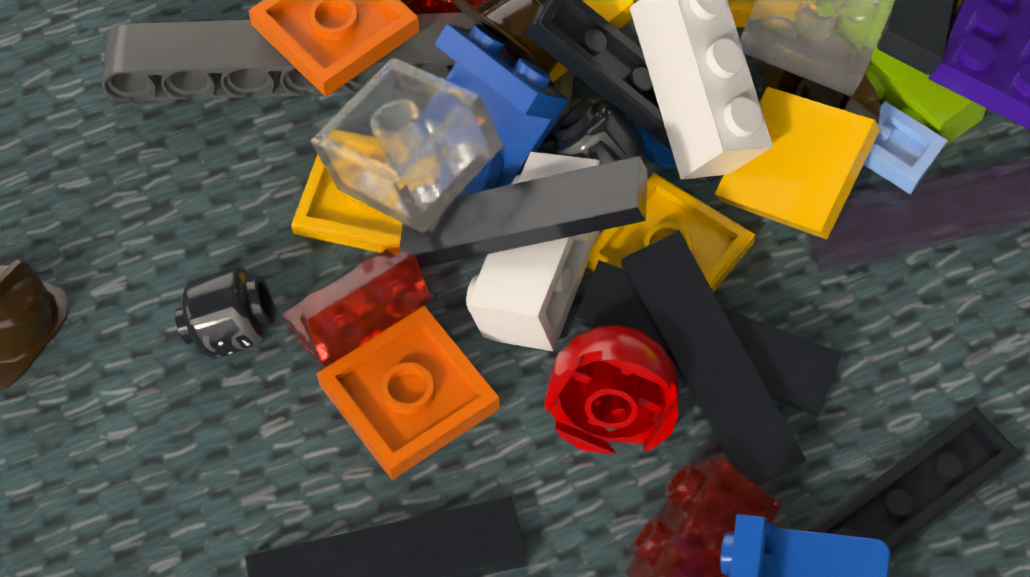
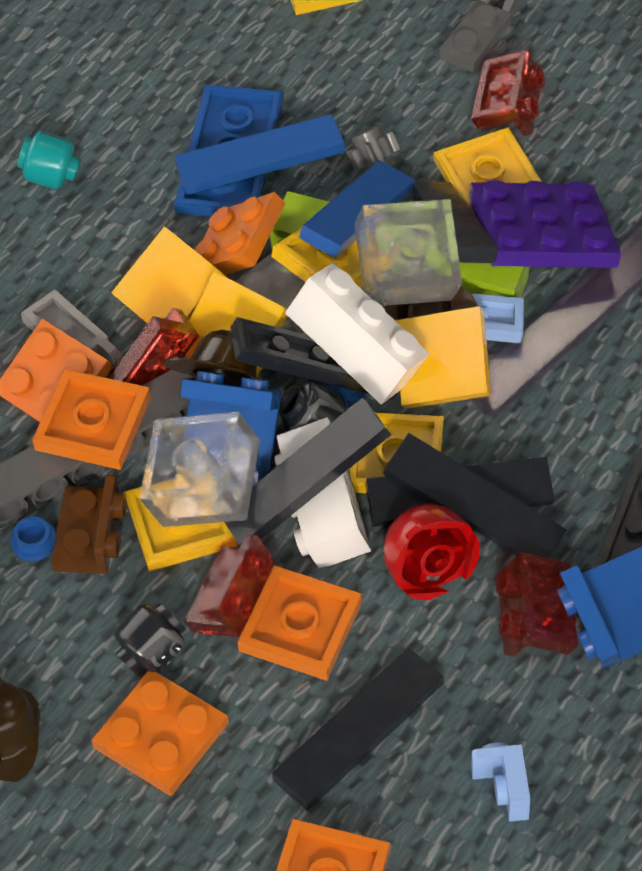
camera: 30 degrees left, 5 degrees down
(164, 430) = (160, 732): none -> orange plate
(194, 127) = (33, 539): none -> blue plate
(260, 147) = (87, 528): none -> reddish brown bracket

